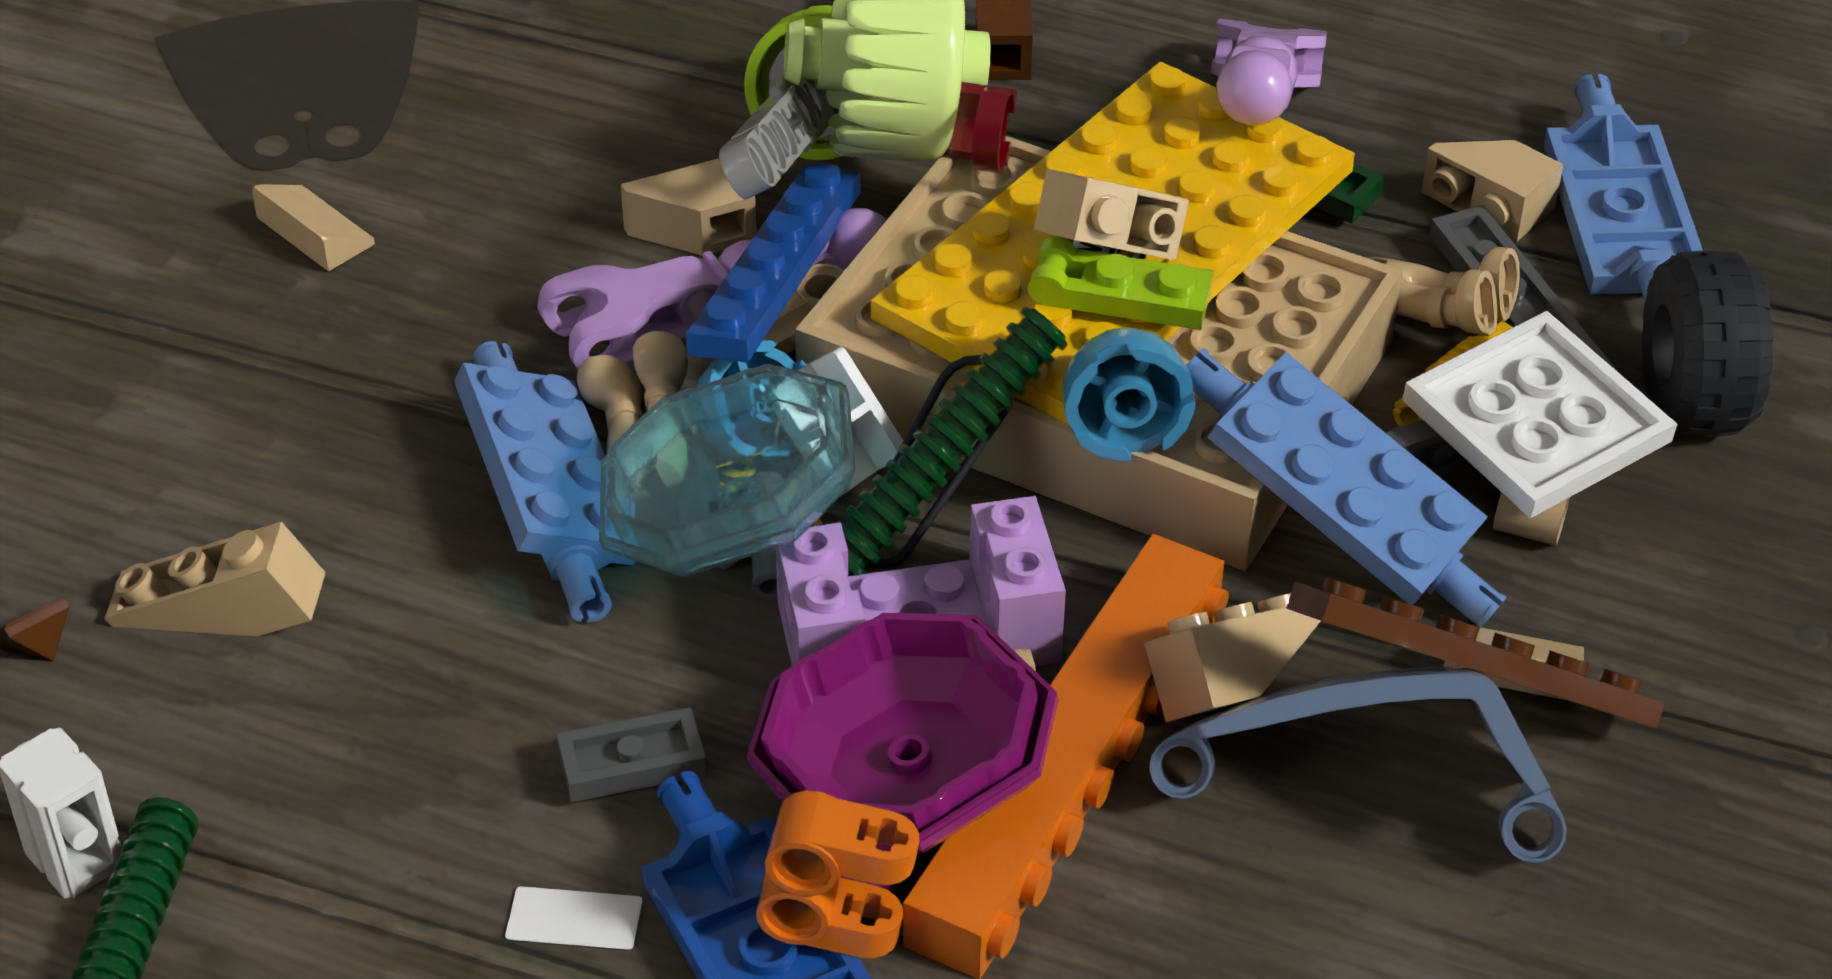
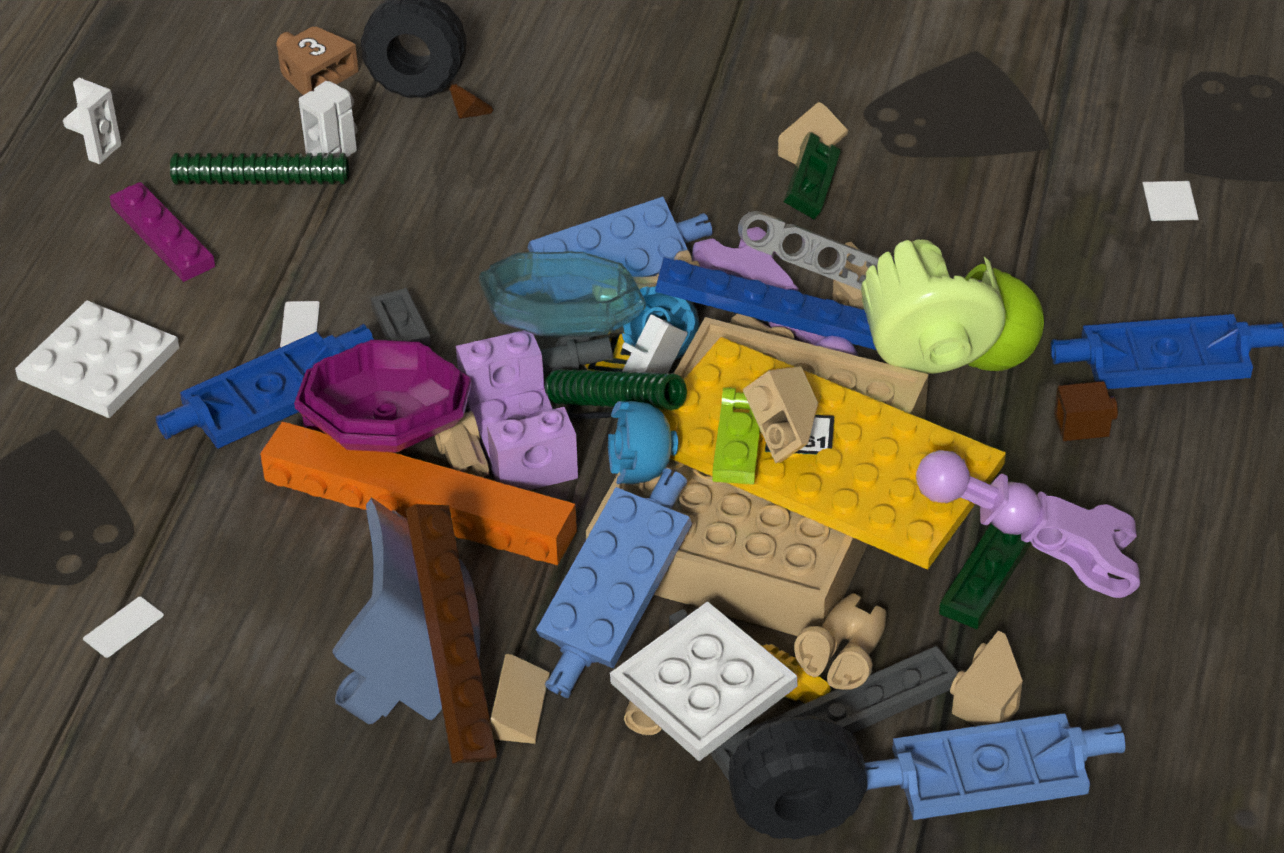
camera: 85 degrees right, 0 degrees up
(228, 587) = (501, 156): tan slope -> none
(417, 224) = (812, 176): none -> dark green plate
(803, 887) = (278, 377): orange piece -> none
(982, 126) = (905, 369): dark red piece -> none
(1224, 661) = (492, 551): tan slope -> none

